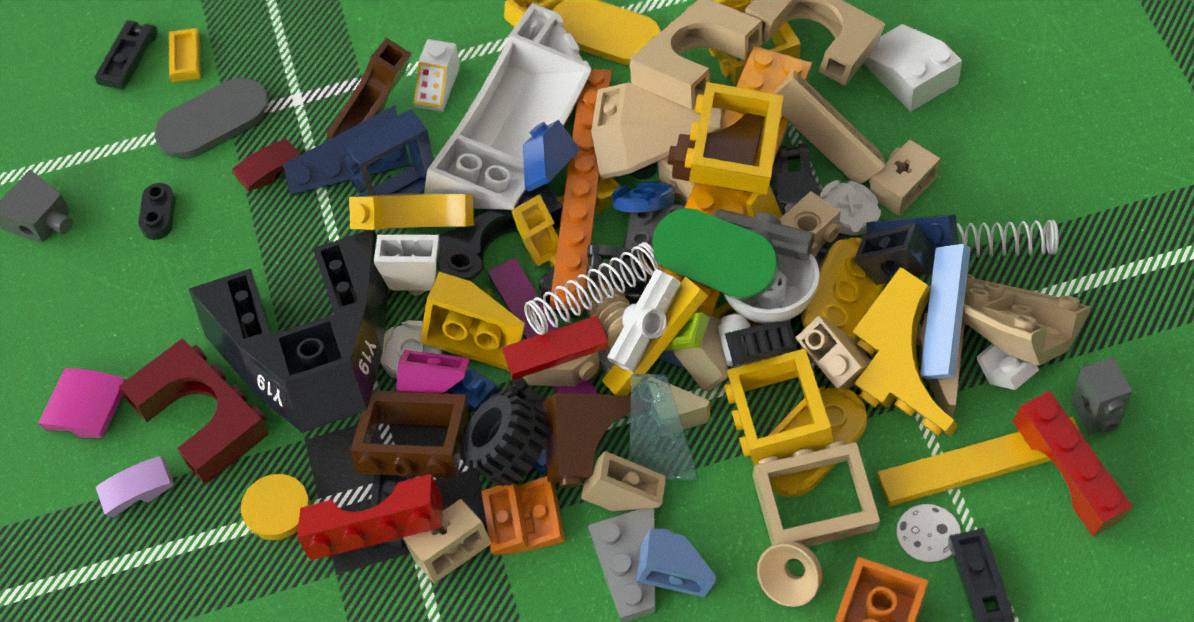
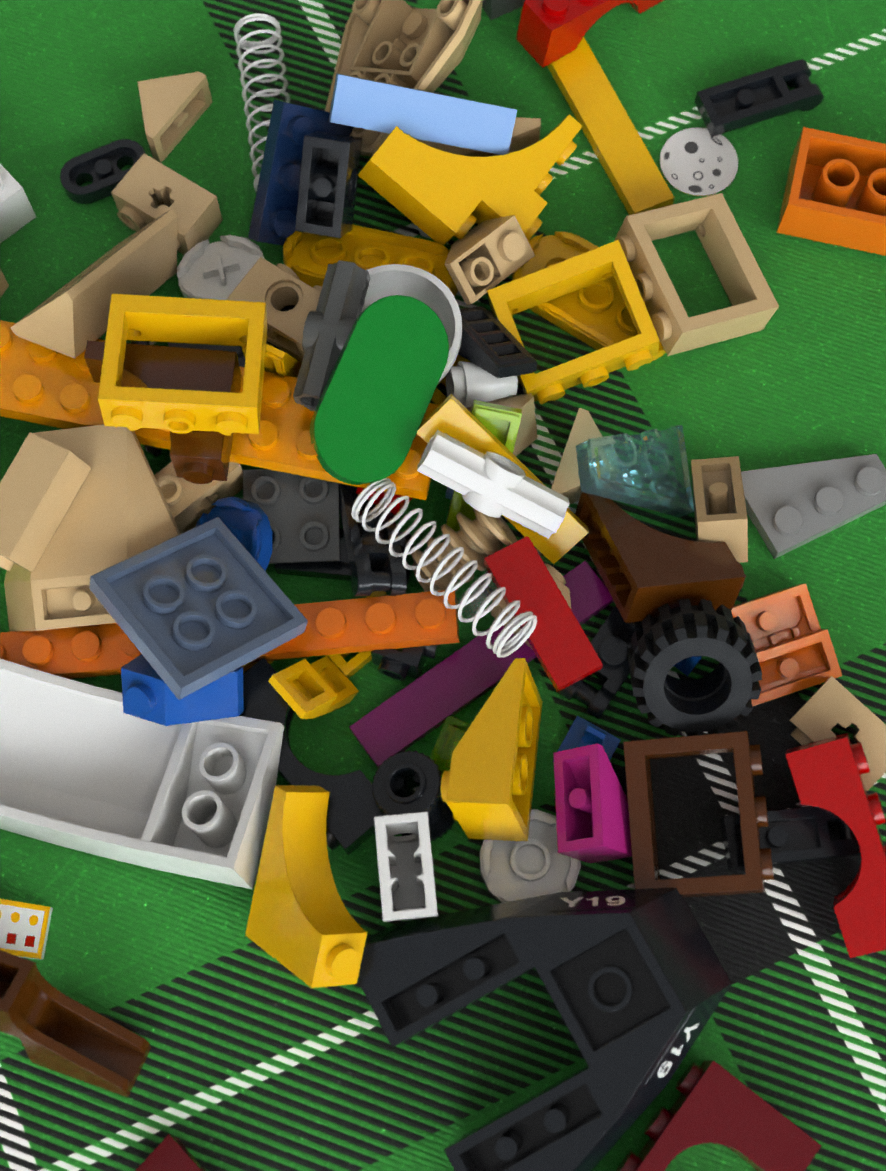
camera: 105 degrees left, 15 degrees up
(274, 506) = (831, 1012): yellow tile -> none
(327, 165) = (164, 1027): dark blue wing -> none
(382, 141) = (212, 940): dark blue window -> none
(589, 158) = (197, 606): none -> sand blue plate
(673, 564) = (824, 433): medium blue slope -> none
(778, 580) = (806, 292): tan piece -> none
(941, 145) = (101, 167): none -> black plate
(981, 180) = (171, 109): none -> tan slope
(1005, 369) = (472, 74): white bracket -> none

